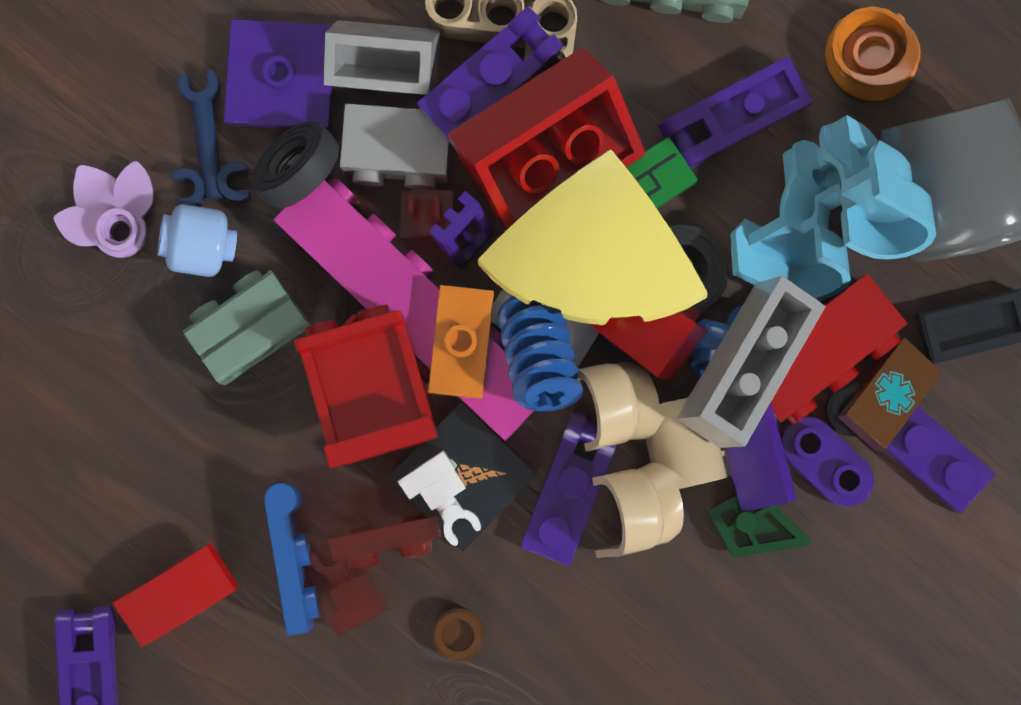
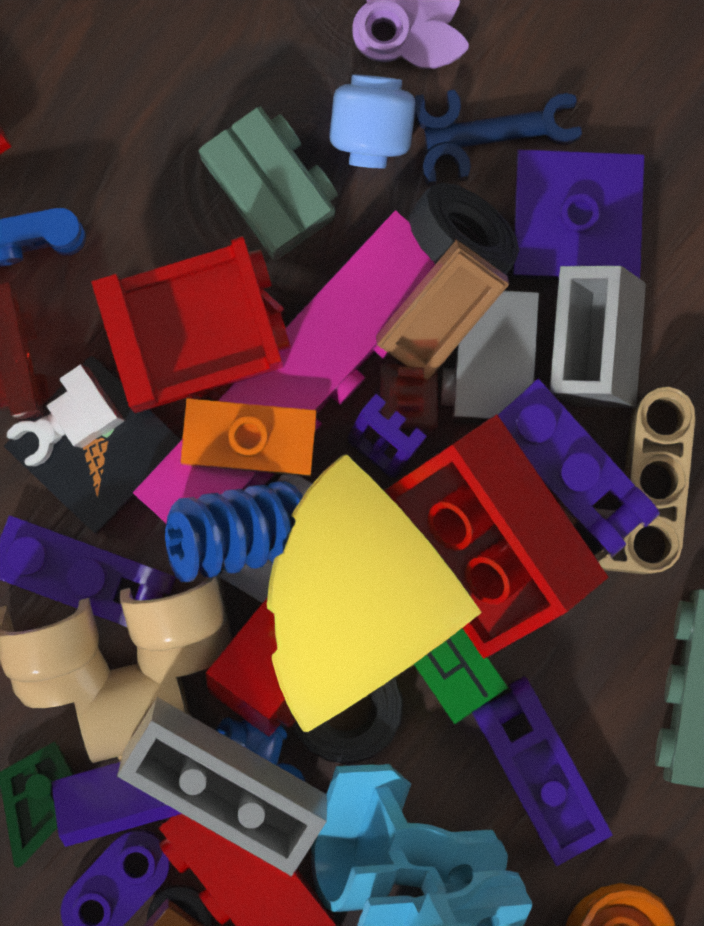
camera: 85 degrees right, 0 degrees up
(357, 179) = (442, 309): none -> medium nougat tile

